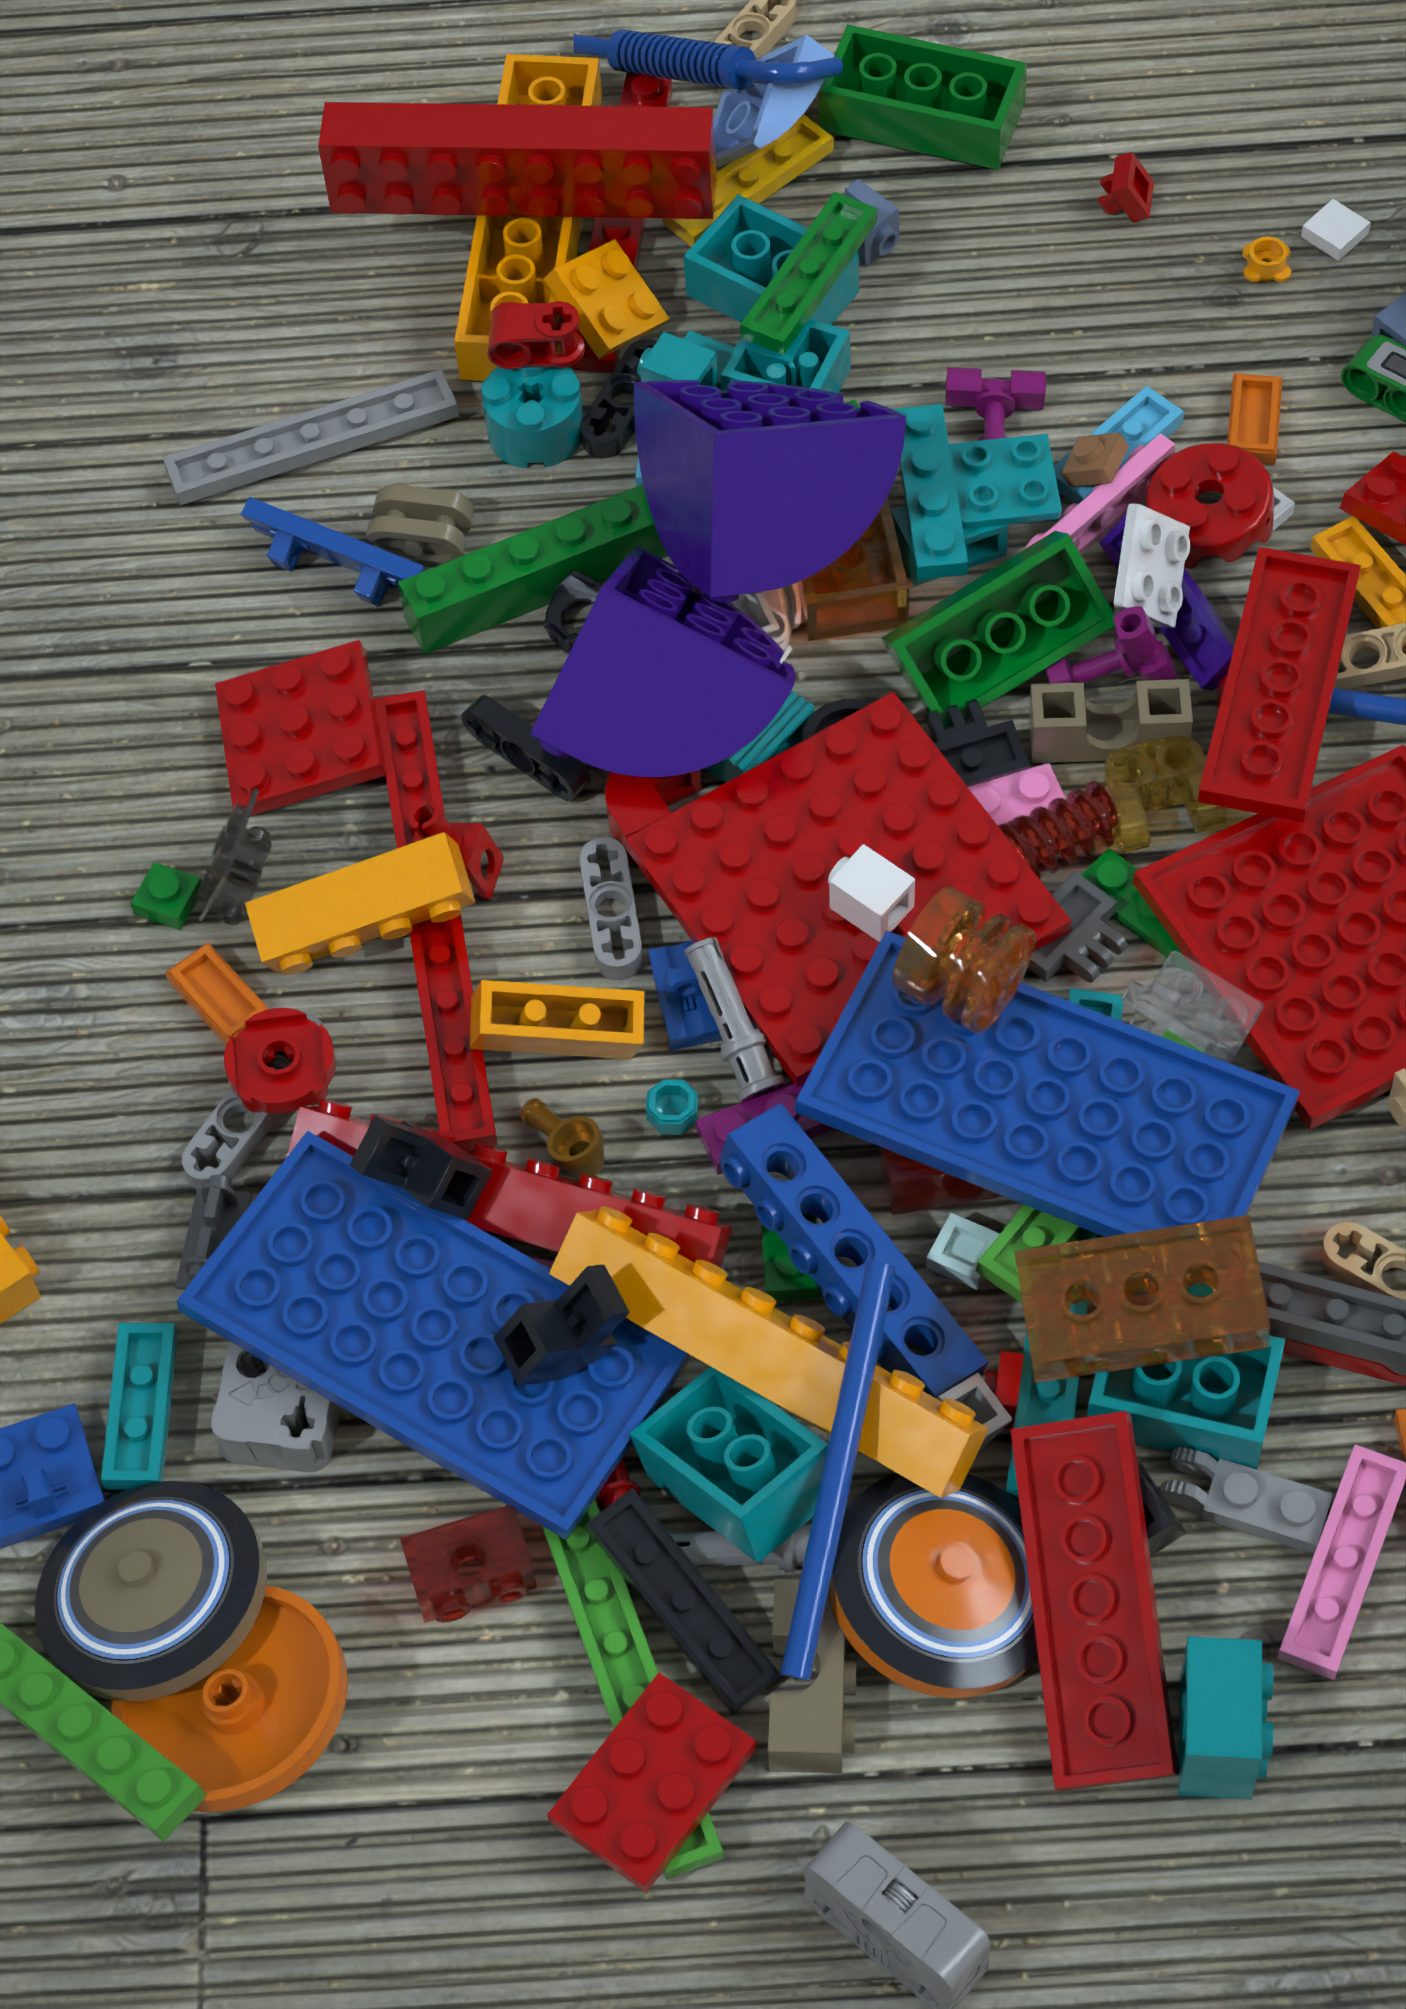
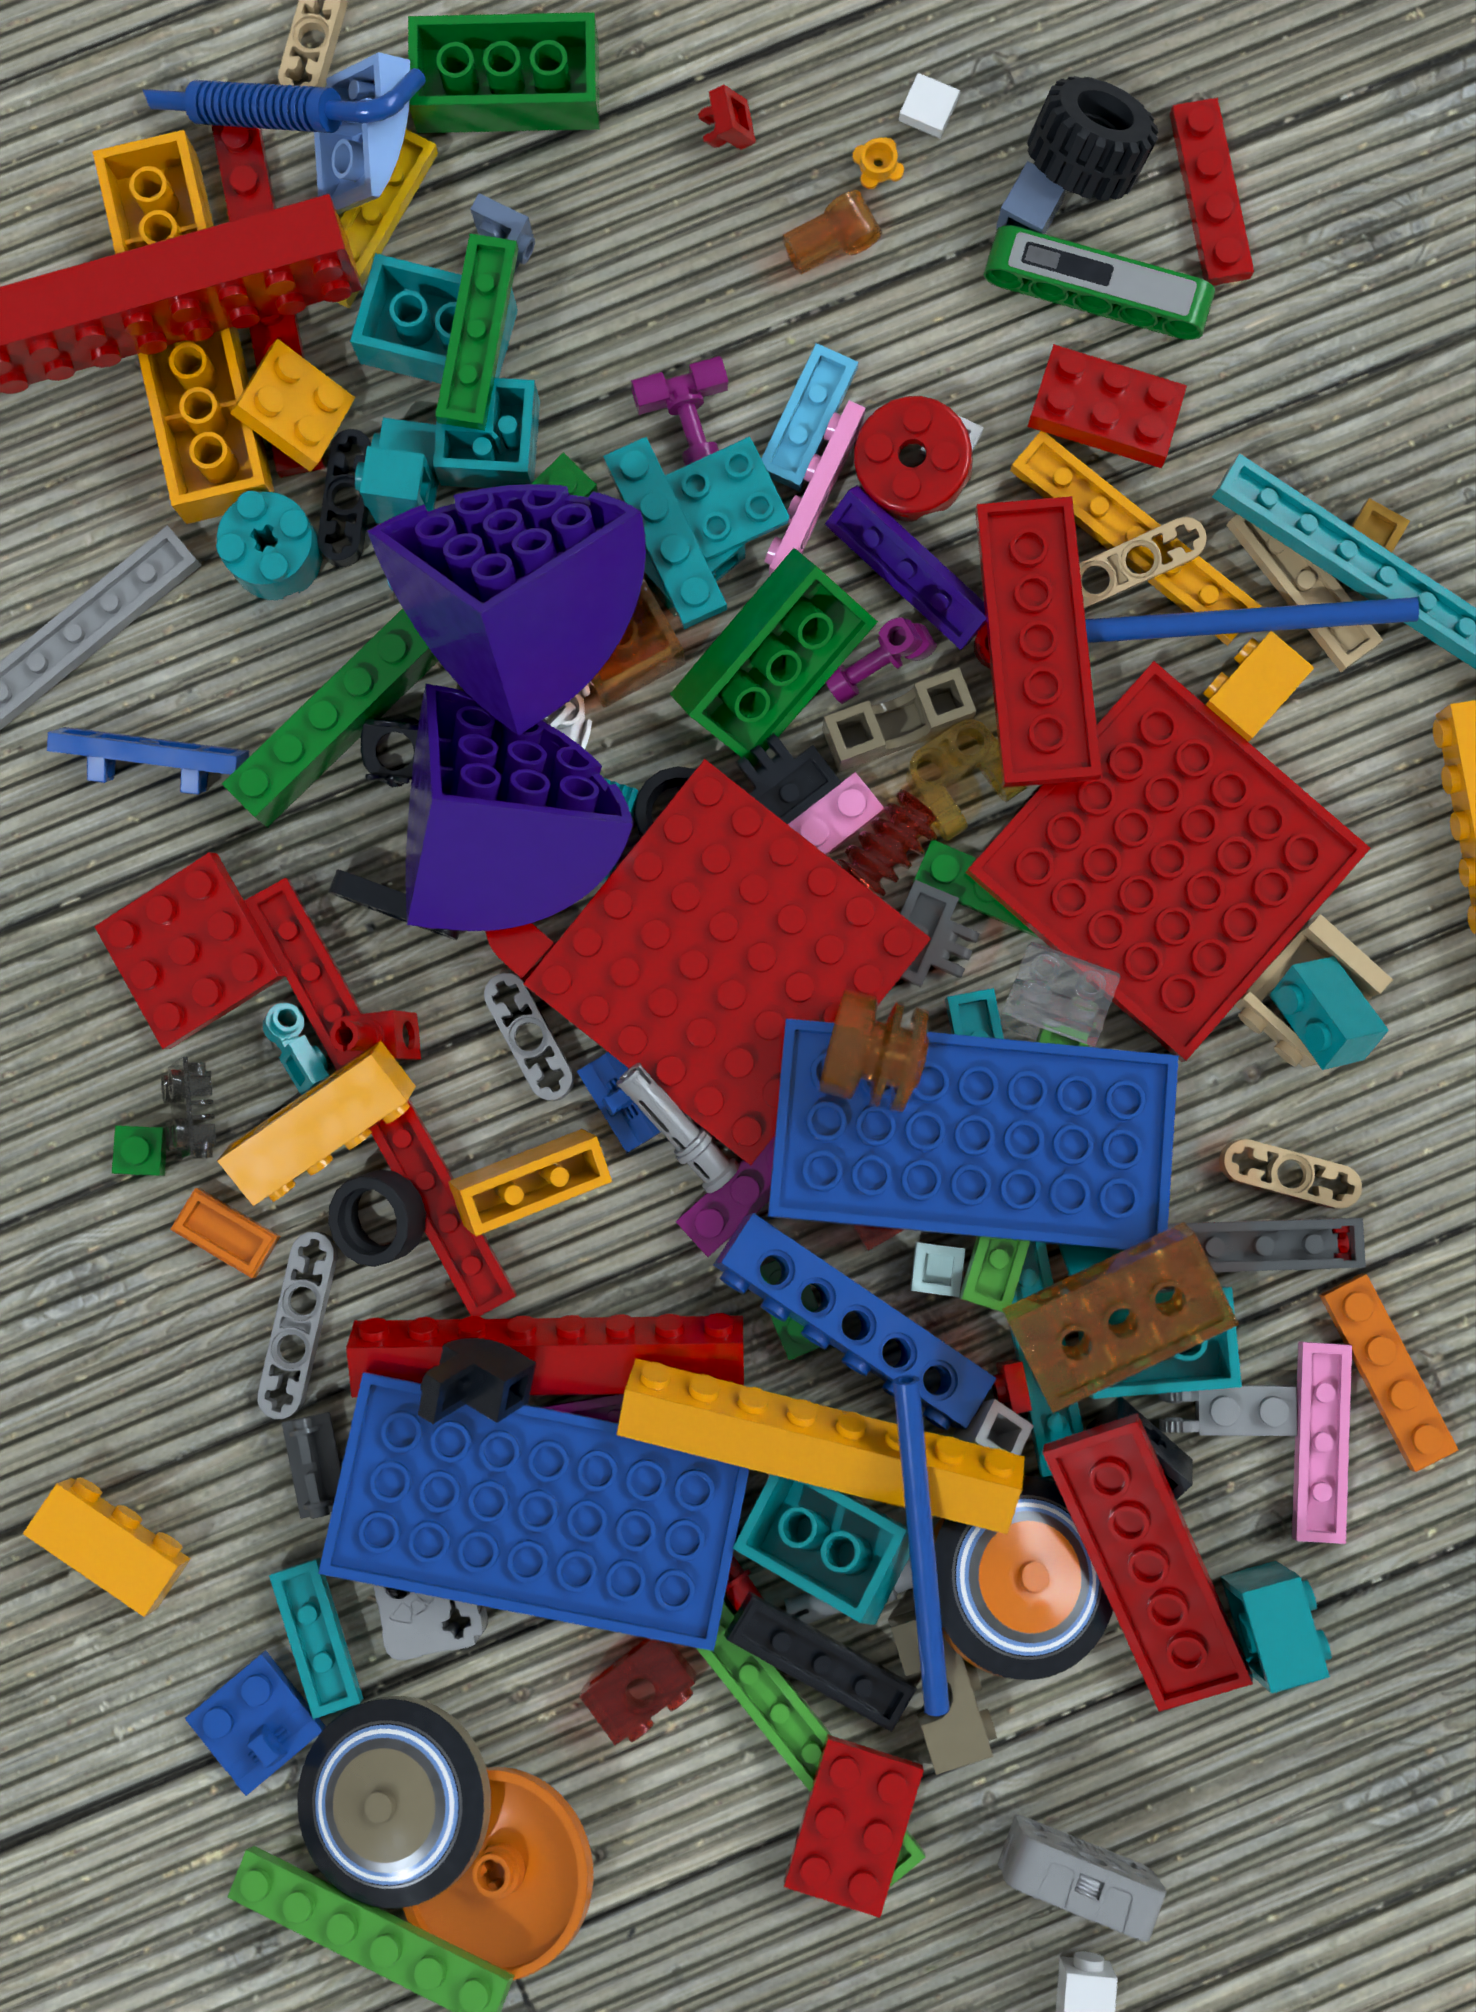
camera: 20 degrees left, 25 degrees up
(287, 1088) = (281, 1285): red plate -> none
(357, 996) = (347, 1228): none -> black tyre
(364, 828) = (301, 1060): none -> teal plate
(420, 523) = (228, 681): dark tan brick -> none
(530, 335) = (239, 486): red piece -> none
(563, 1334) = (650, 1495): black brick -> none
(572, 1143) = (574, 1277): pearl gold bar -> none
(672, 1106) = (651, 1214): teal tile -> none
(871, 892) = (758, 983): white brick -> none
(1095, 459) = (800, 448): medium nougat plate -> none
(1152, 565) = (887, 558): white bracket -> none
(1211, 302) = (842, 228): none -> clear orange piece
(1255, 415) = (918, 342): orange tile -> none

